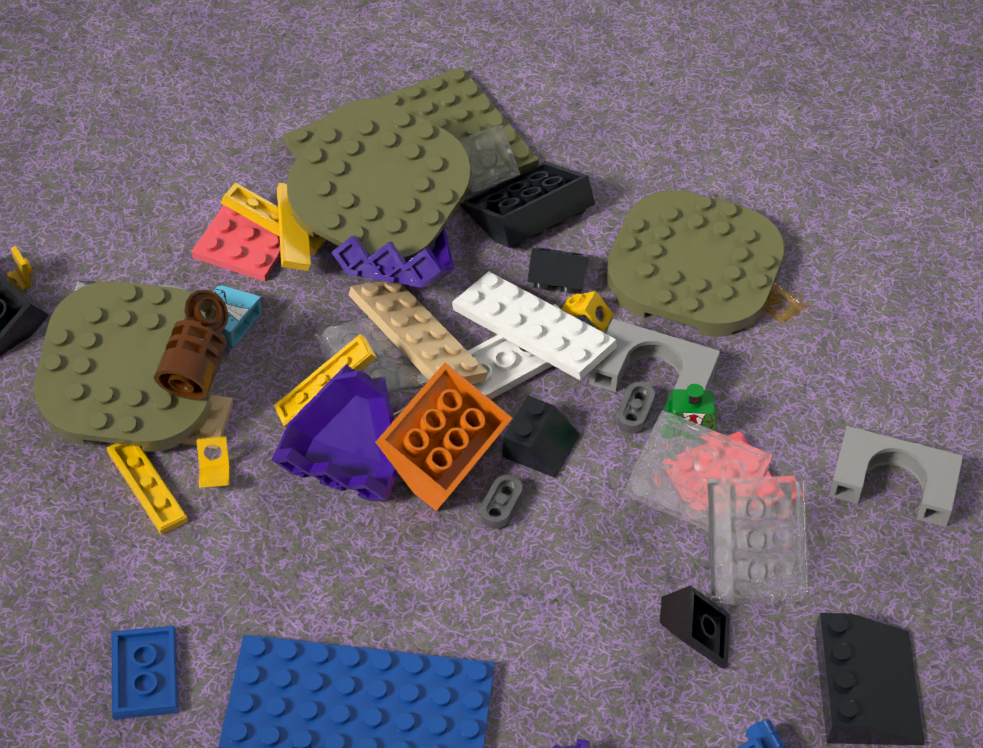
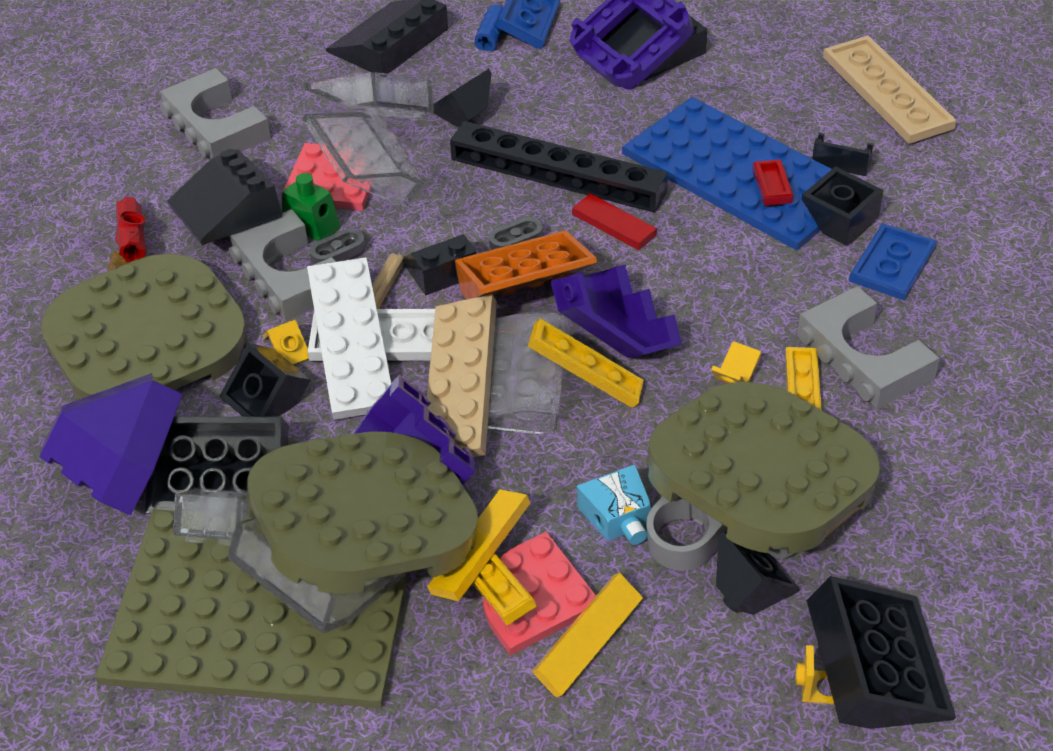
camera: 140 degrees left, 5 degrees down
(91, 520) = (874, 377): none -> light grey arch
(184, 228) = (587, 635): none -> yellow tile
(194, 348) = (704, 388): reddish brown cylinder -> none
(220, 685) = (843, 204): none -> black slope
(308, 681) = (772, 182): none -> red tile
(432, 572) = (614, 221): none -> red tile
(516, 589) = (559, 166): none -> black brick
(566, 398) = (386, 277): none -> tan axle
(600, 160) = (113, 439): none -> dark purple panel
(765, 385) = (225, 198): none -> black slope
(823, 335) = (130, 229): none -> red piece

